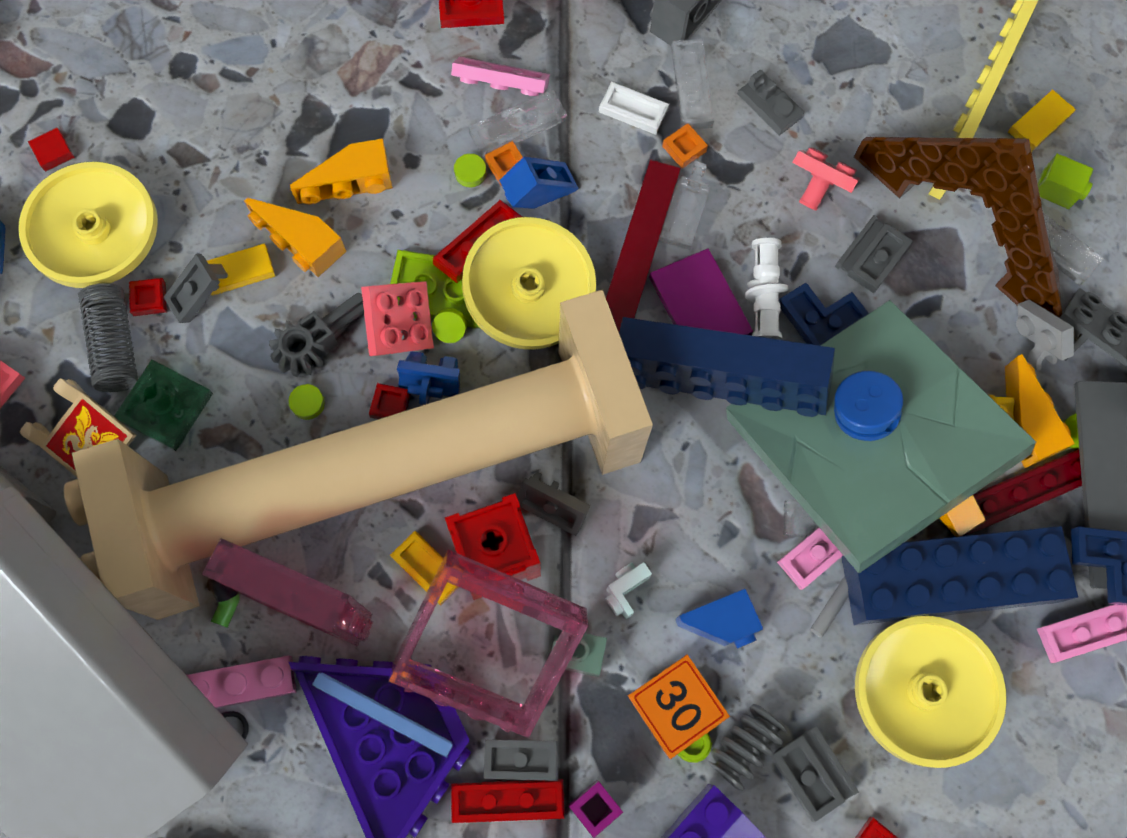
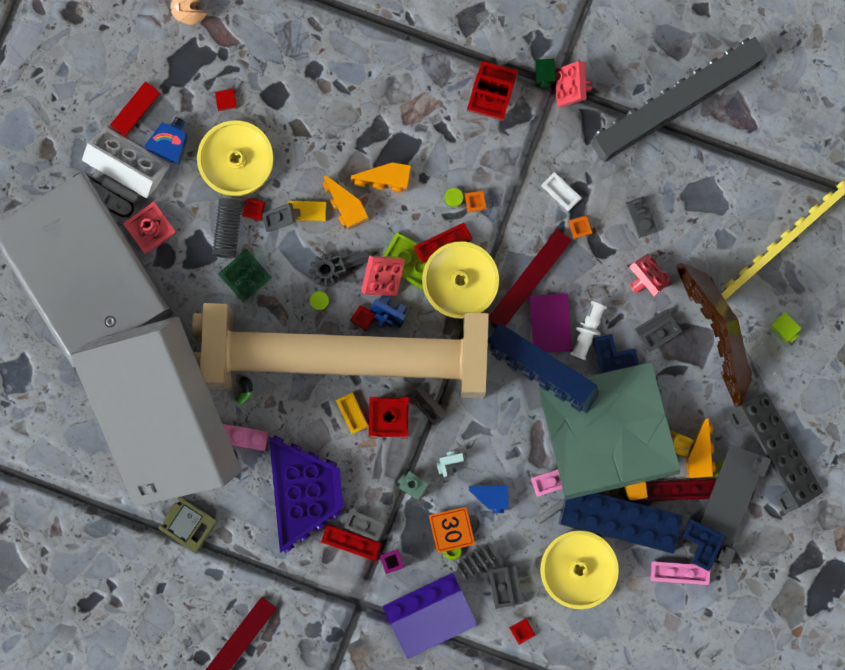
camera: 25 degrees right, 10 degrees up
(80, 427) = (198, 280): flag -> none
(289, 592) = (282, 406): clear pink window -> none
(383, 714) = (306, 479): medium blue tile -> none
(449, 325) = (409, 286): lime tile -> none
(500, 76) = (492, 145): bright pink plate -> none
(516, 595) = (388, 447): clear pink window -> none
(537, 182) = (488, 221): blue slope -> none
(686, 209) = (565, 265): clear hinge -> none
(868, 405) = (607, 417): blue head -> none
(1042, 119) = (793, 285): yellow tile -> none
(1050, 334) = (727, 414): light grey plate -> none

